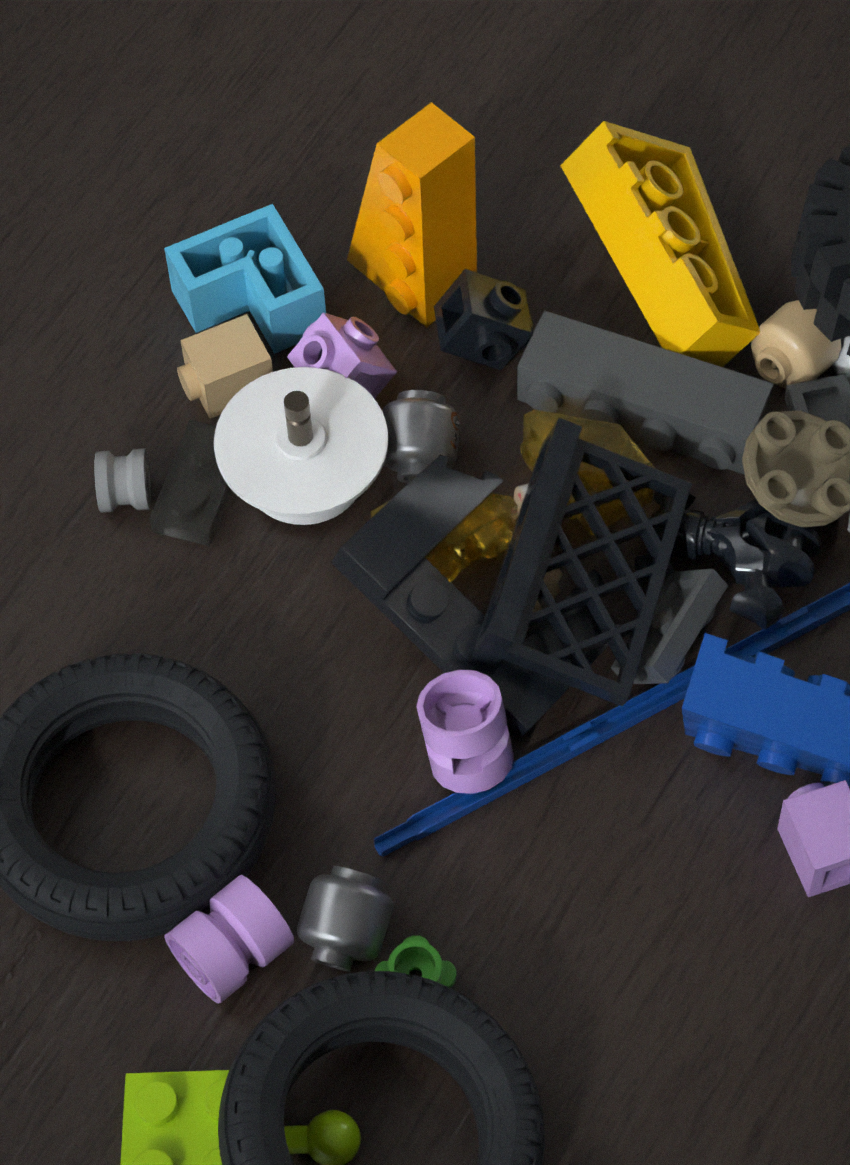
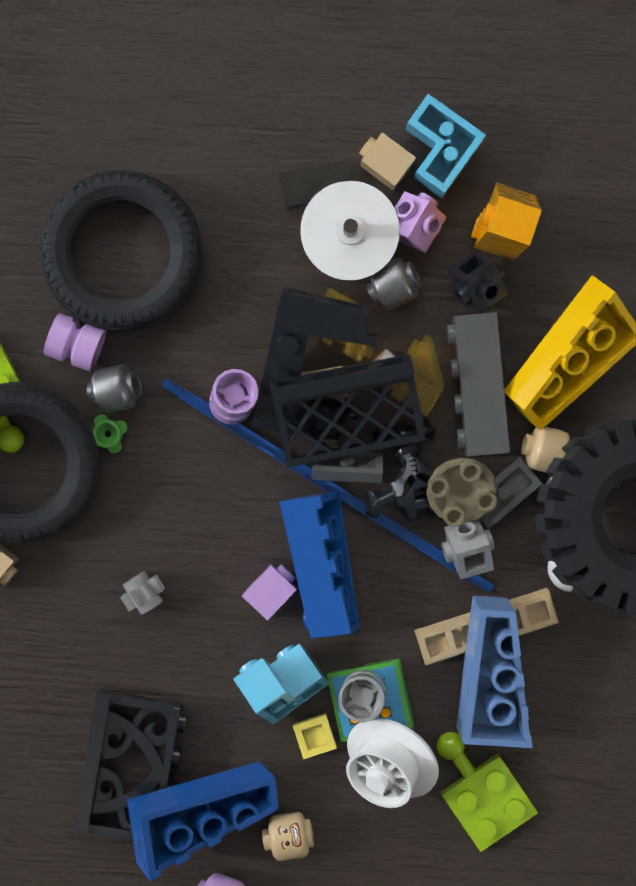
camera: 60 degrees right, 30 degrees up
(122, 480) = (292, 147): light grey wheel -> none
(728, 1042) = (142, 592): none -> light grey gear

